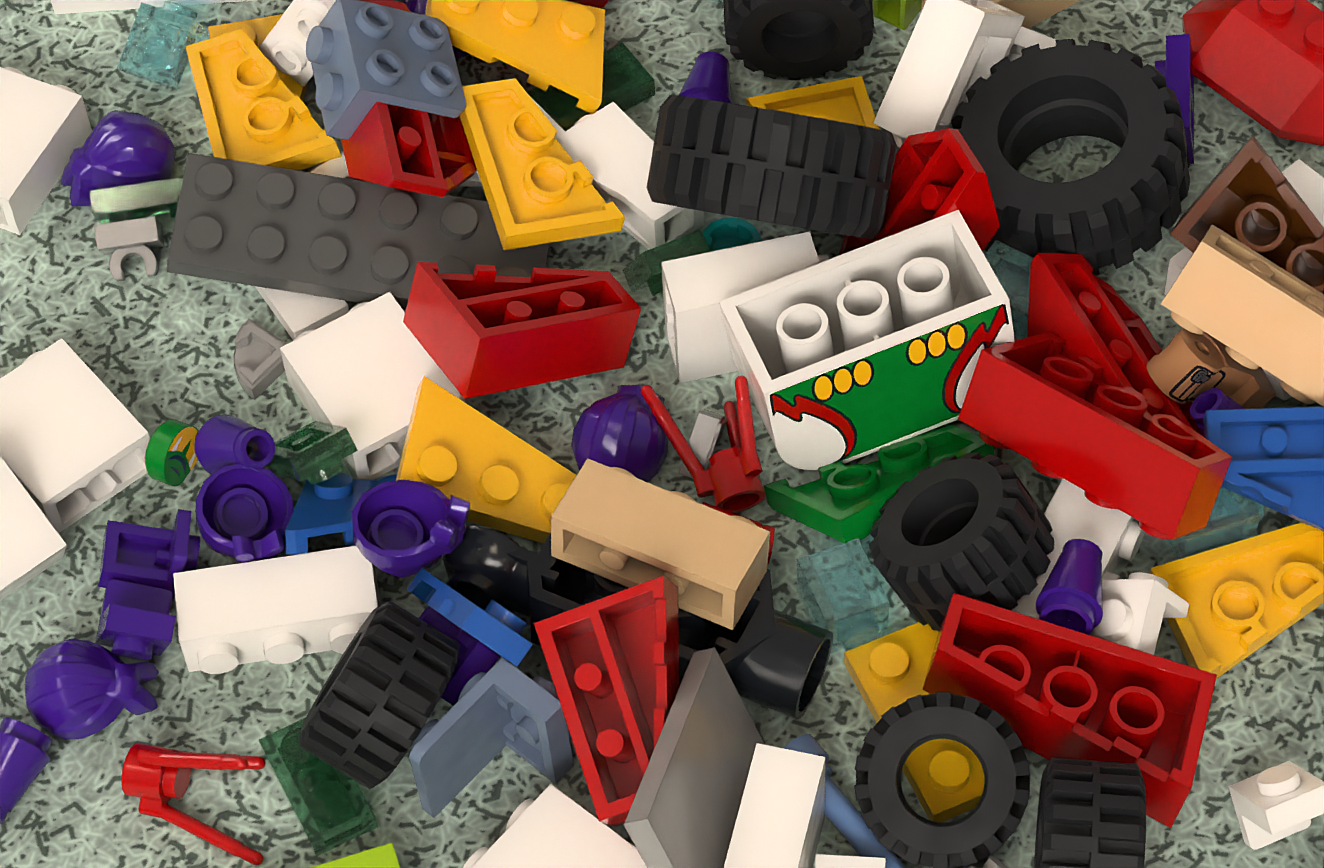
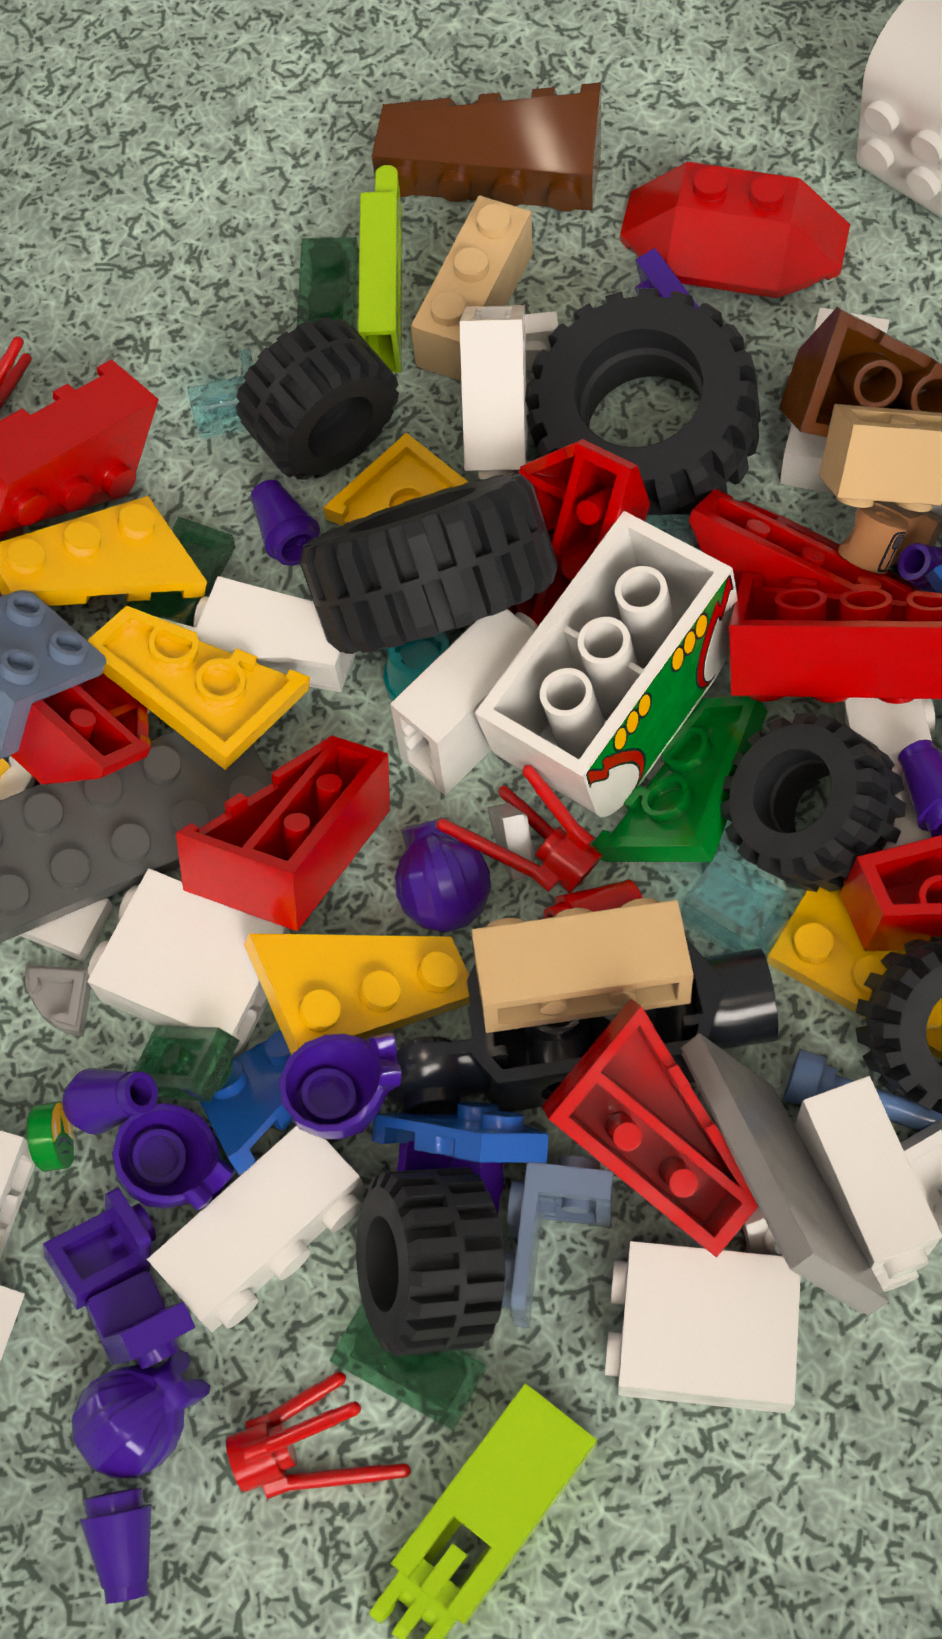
camera: 30 degrees left, 10 degrees up
(647, 267) = (370, 696): clear green plate -> none

